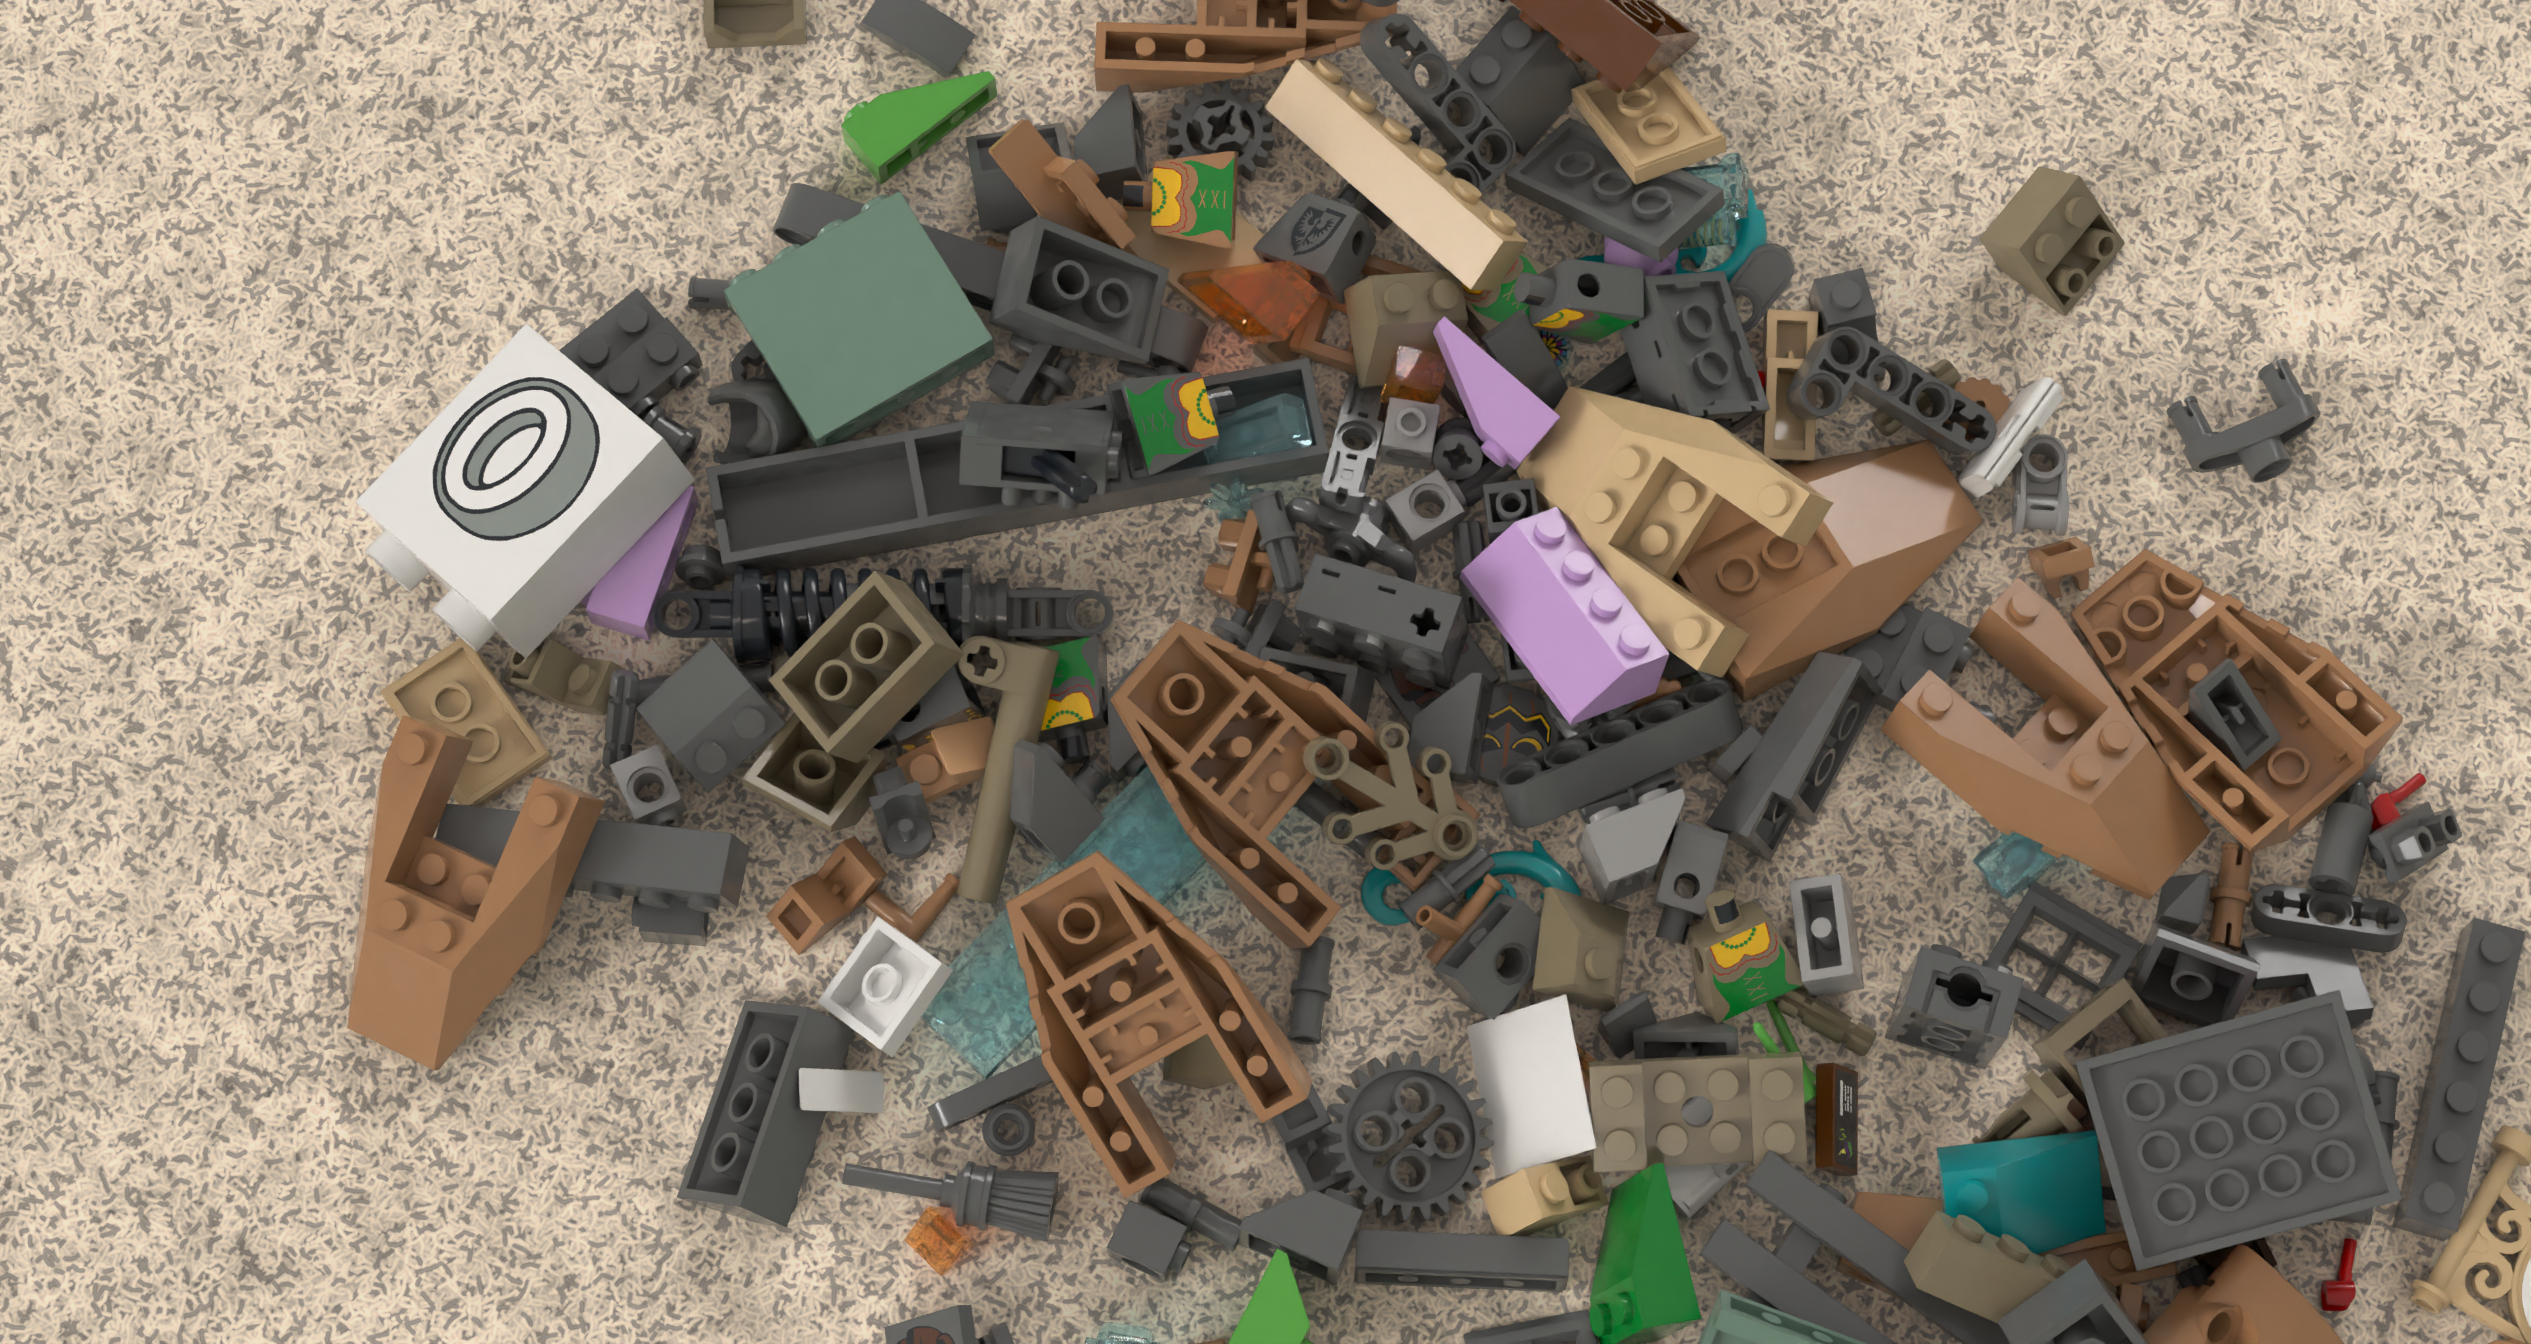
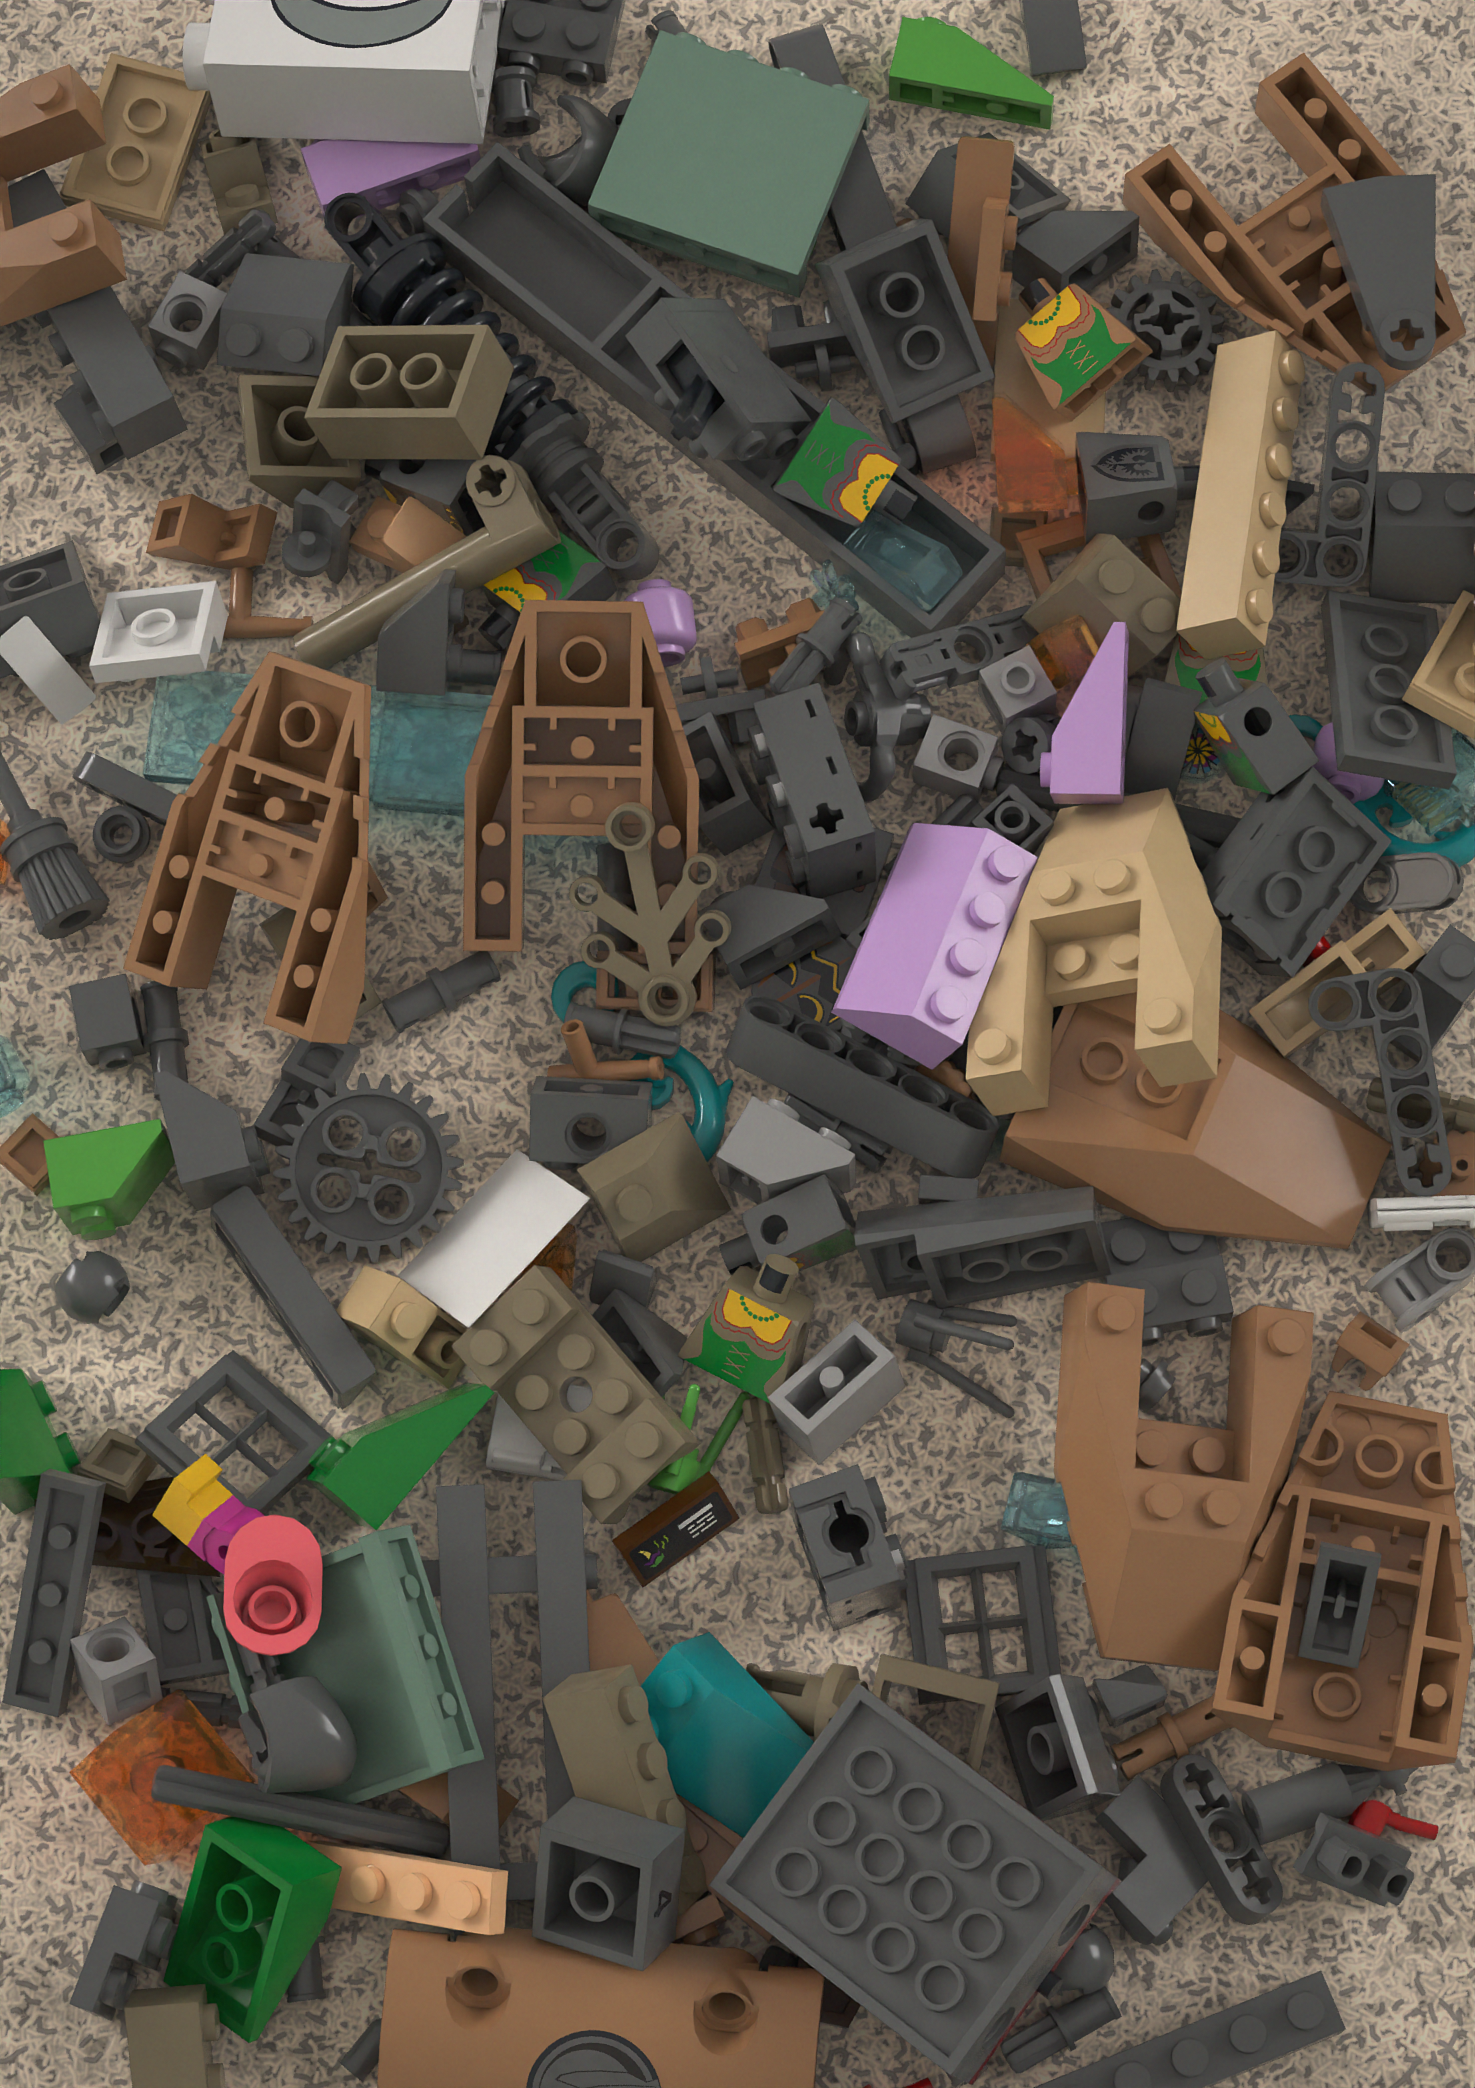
camera: 60 degrees right, 0 degrees up
(1147, 625) = (670, 618): none -> lavender head
(1823, 840) = (929, 1328): none -> dark grey plant

